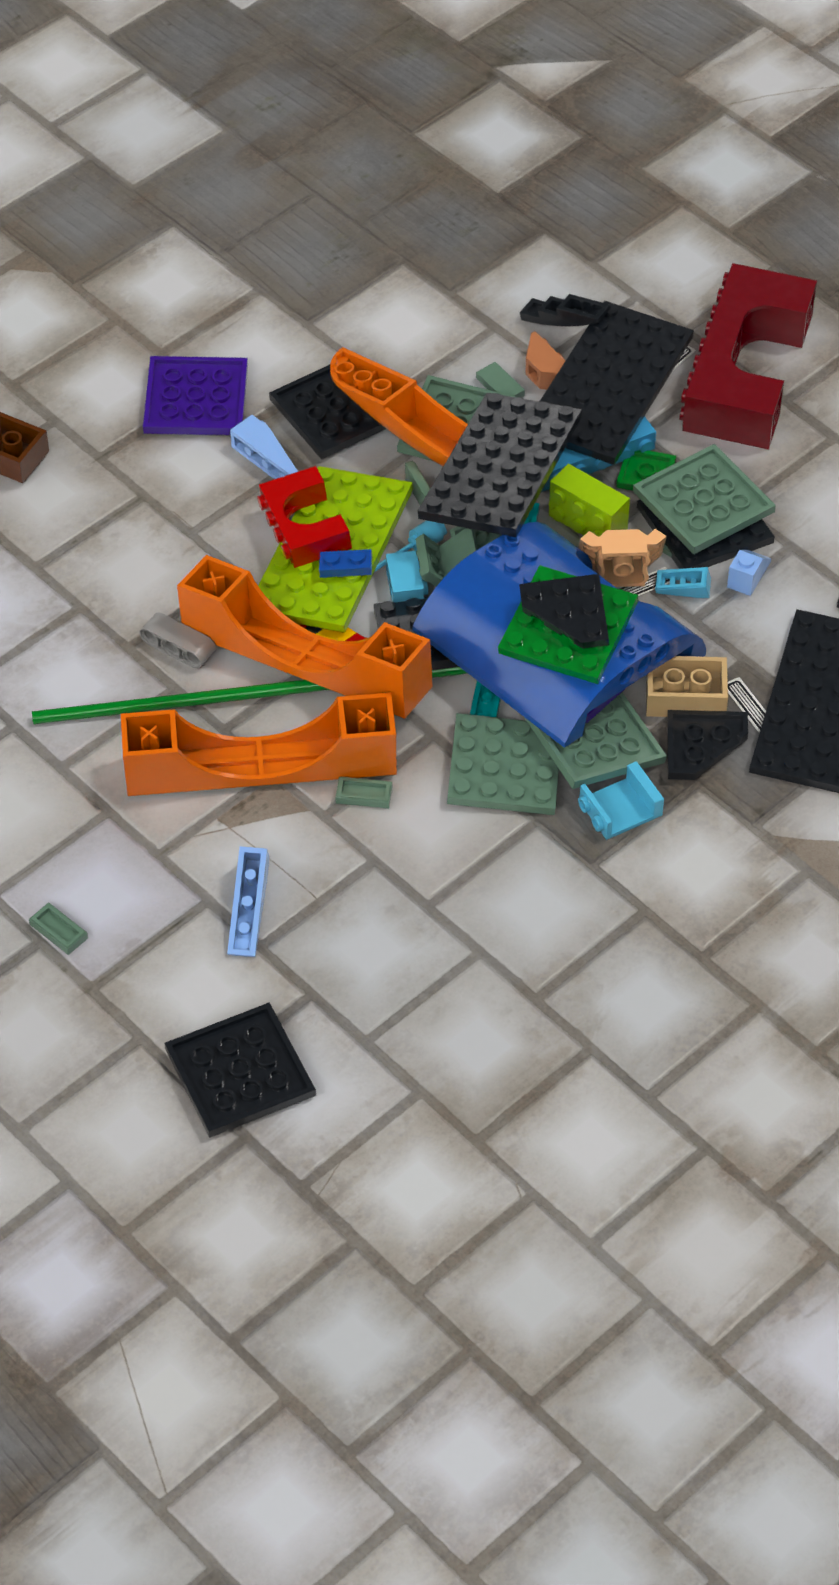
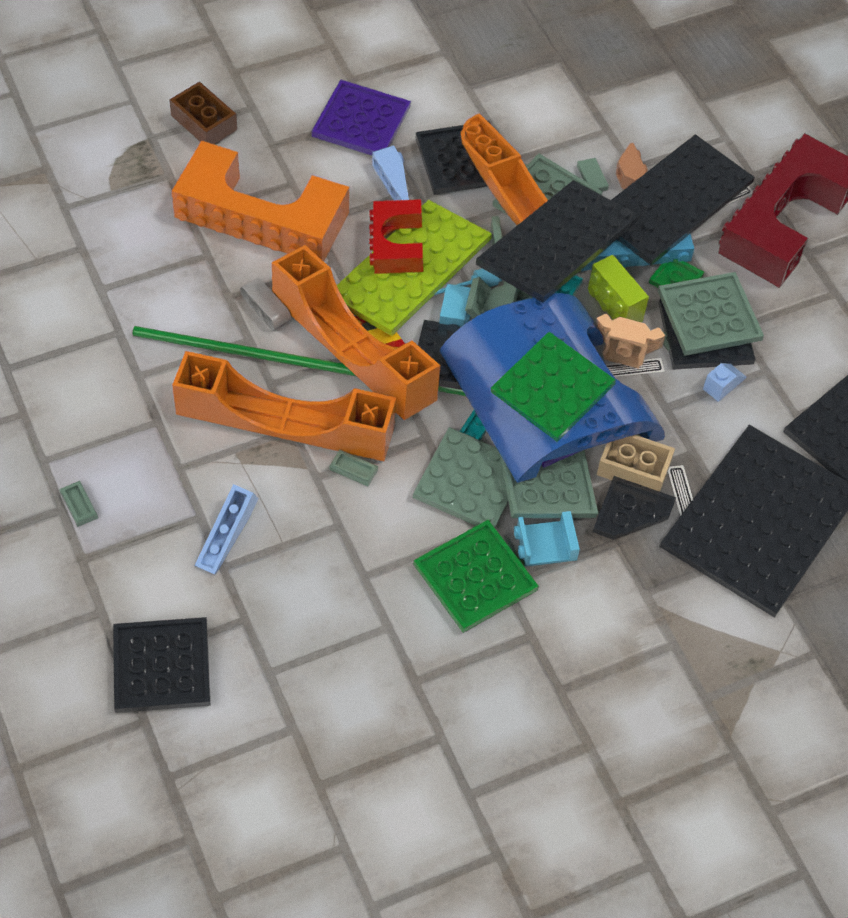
camera: 15 degrees right, 5 degrees up
(59, 542) = (208, 199): none -> orange arch
(345, 563) = (412, 282): blue plate -> none
(556, 864) = (475, 575): none -> green plate
(564, 312) = (661, 134): black slope -> none
(569, 608) = (556, 374): black plate -> none
(698, 588) = (673, 383): medium azure slope -> none

